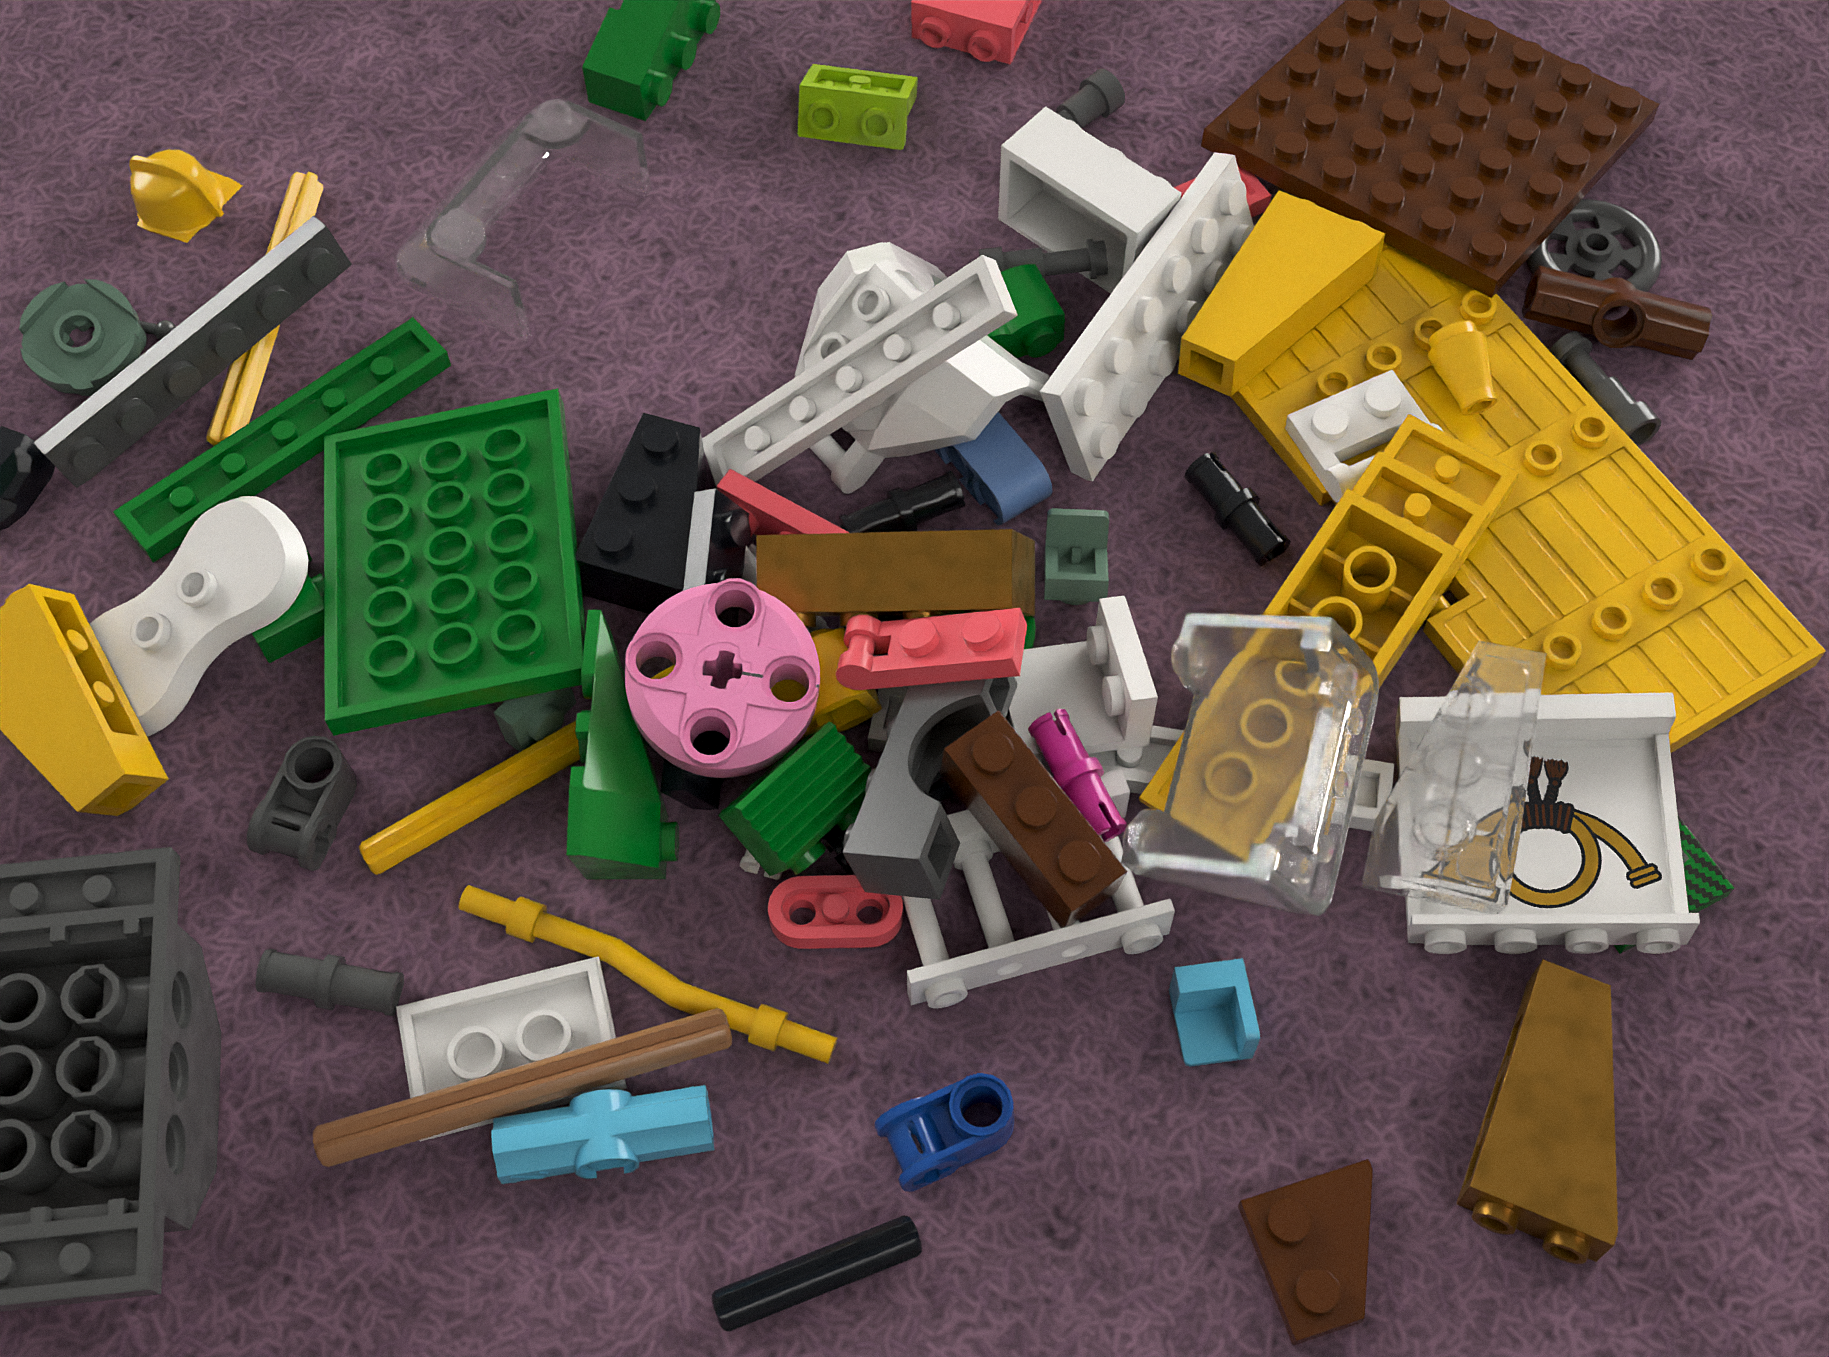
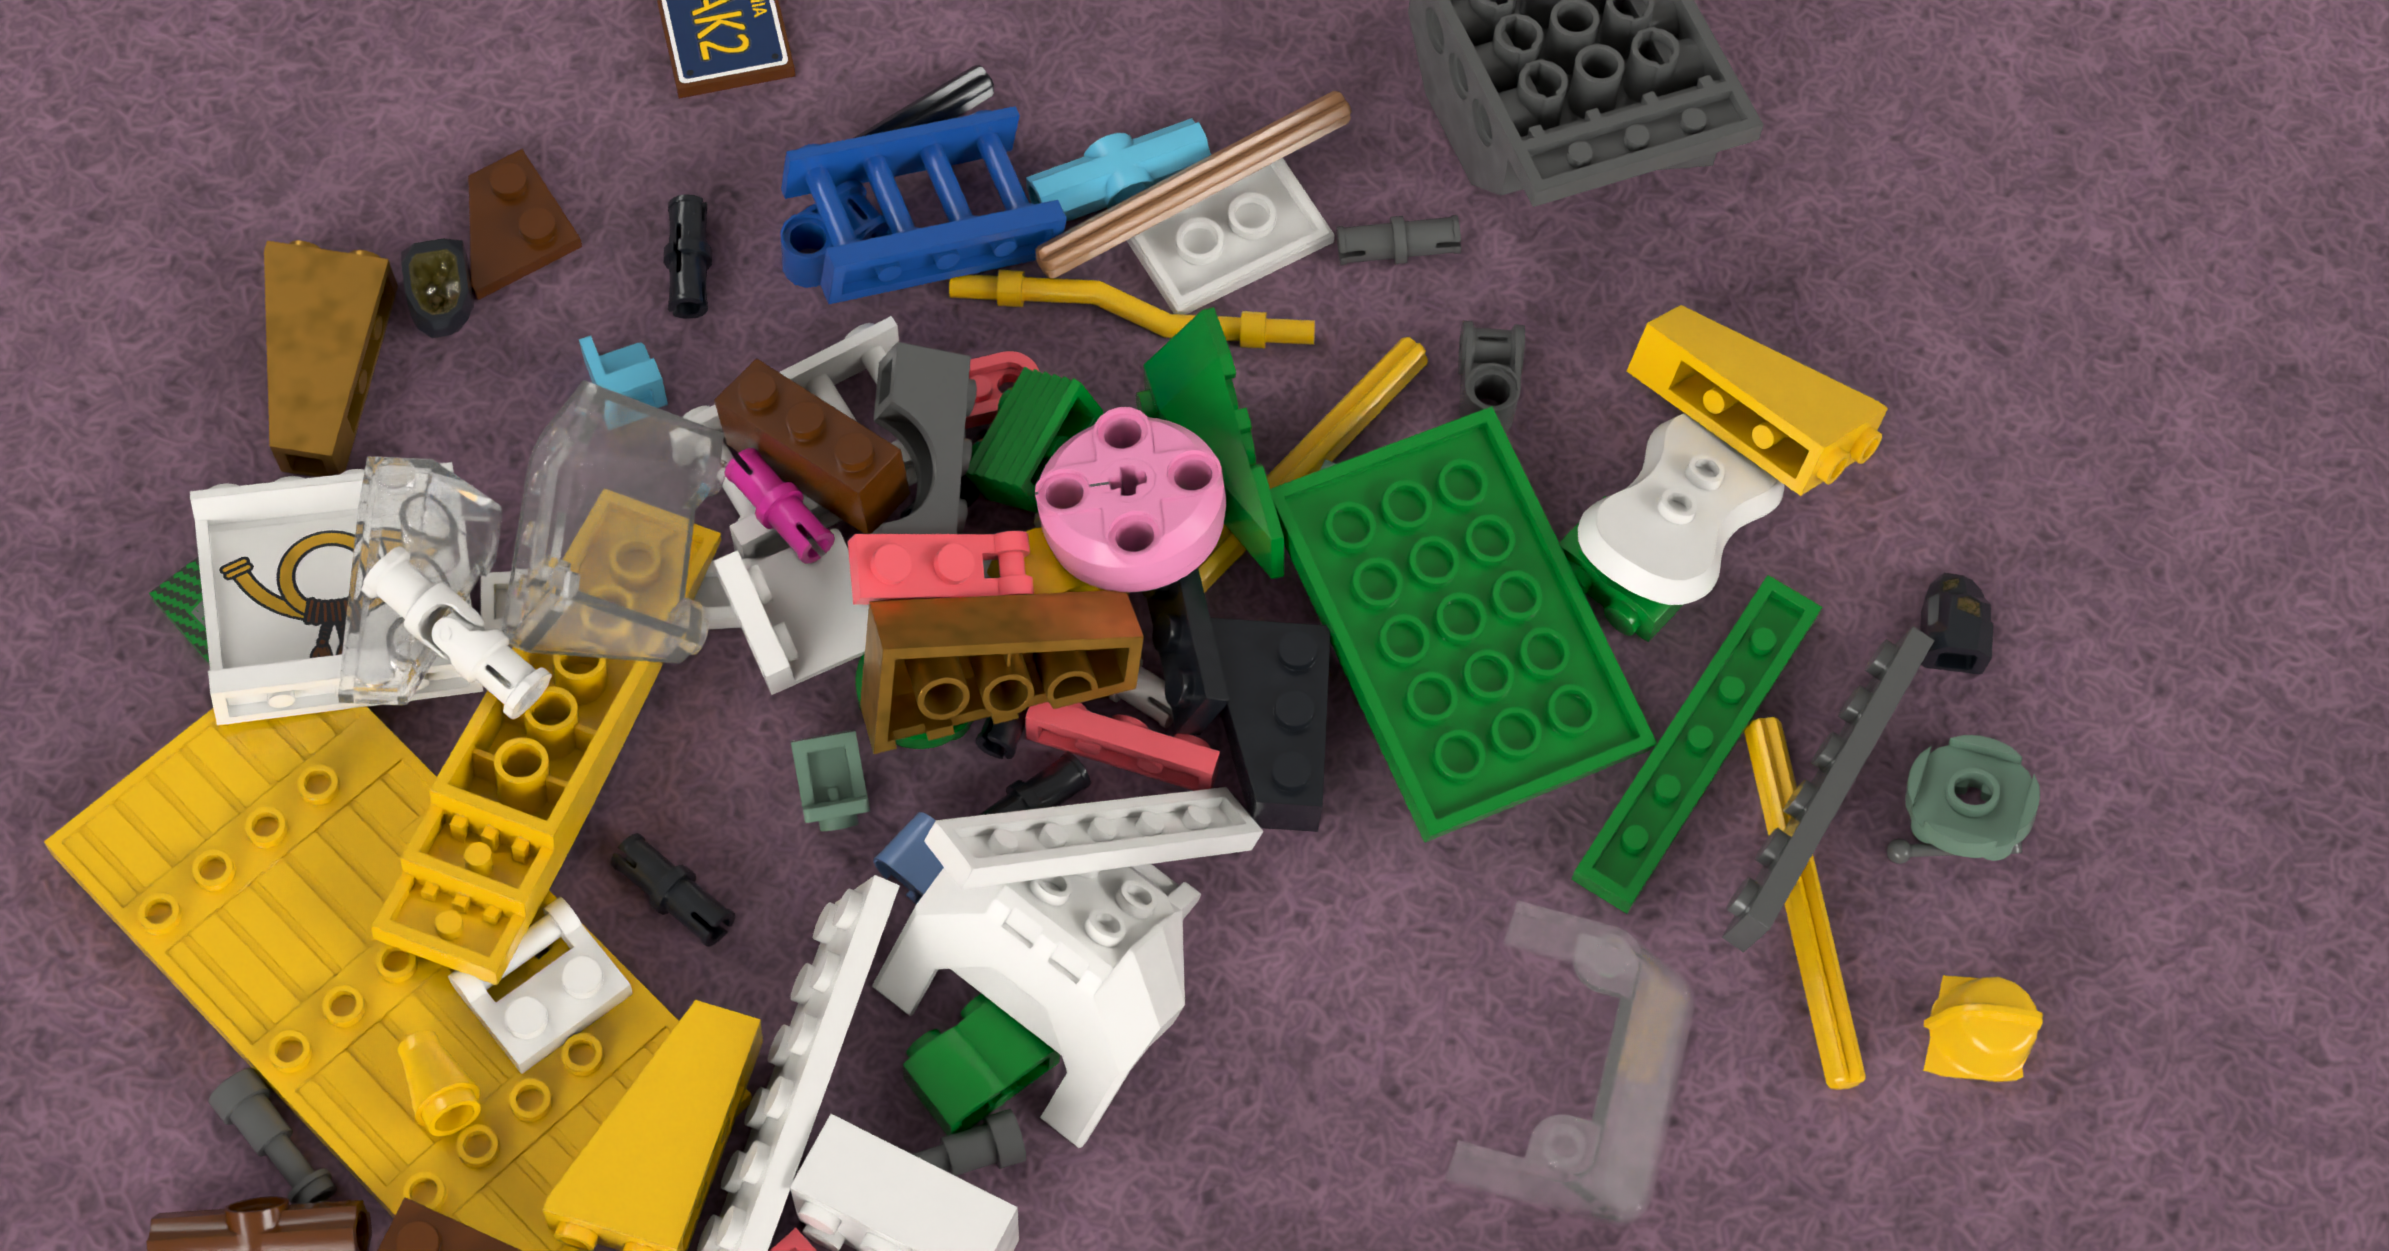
camera: 160 degrees right, 5 degrees up
(798, 1060) = (913, 253): none -> blue fence
(1119, 1148) = (687, 256): none -> black pin
(1412, 1159) = (437, 286): none -> rock
(1428, 671) = (460, 637): none -> white piece

